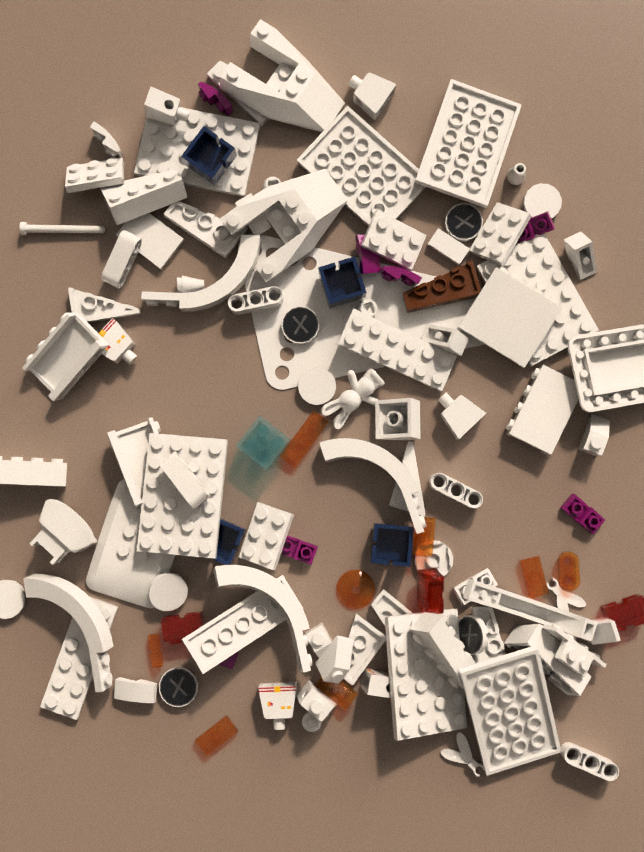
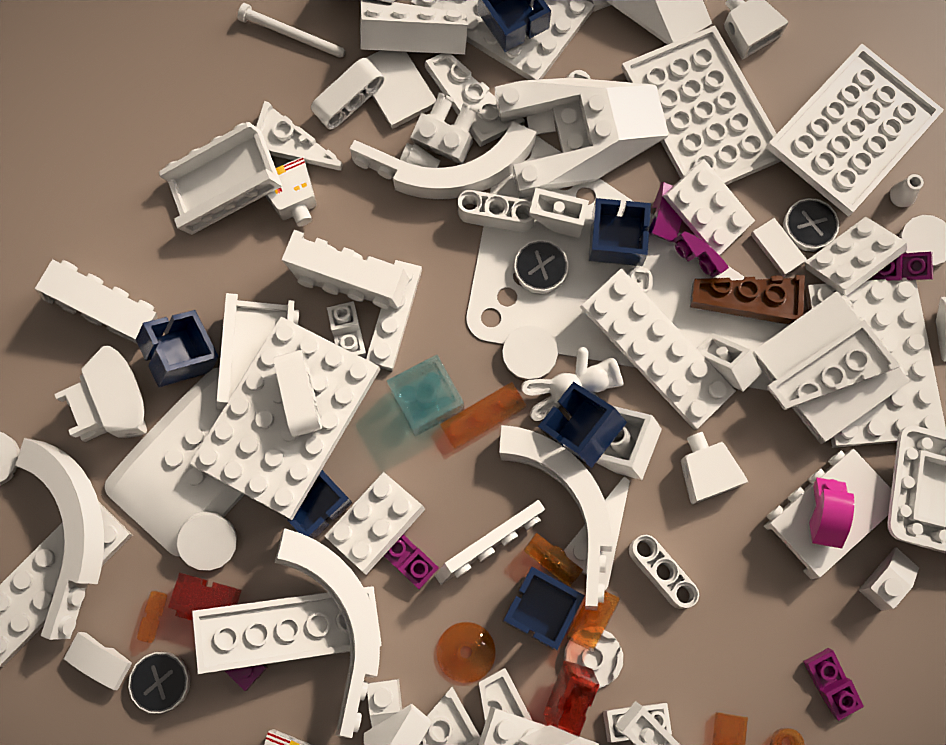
camera: 20 degrees right, 10 degrees down
(94, 480) = (181, 352): none -> dark blue piece
(176, 385) = (345, 272): none -> white wedge
(193, 420) = (346, 328): none -> white slope
(203, 265) = (445, 139): none -> white brick
(219, 397) = (392, 323): none -> white plate
(297, 285) = (559, 212): none -> white slope
(341, 524) = (484, 547): none -> white wing
(374, 424) = (591, 425): none -> dark blue piece
(385, 511) = (553, 559): none -> clear orange plate
(516, 314) = (842, 363): none -> white wing
(544, 413) = (832, 513): none -> dark pink brick

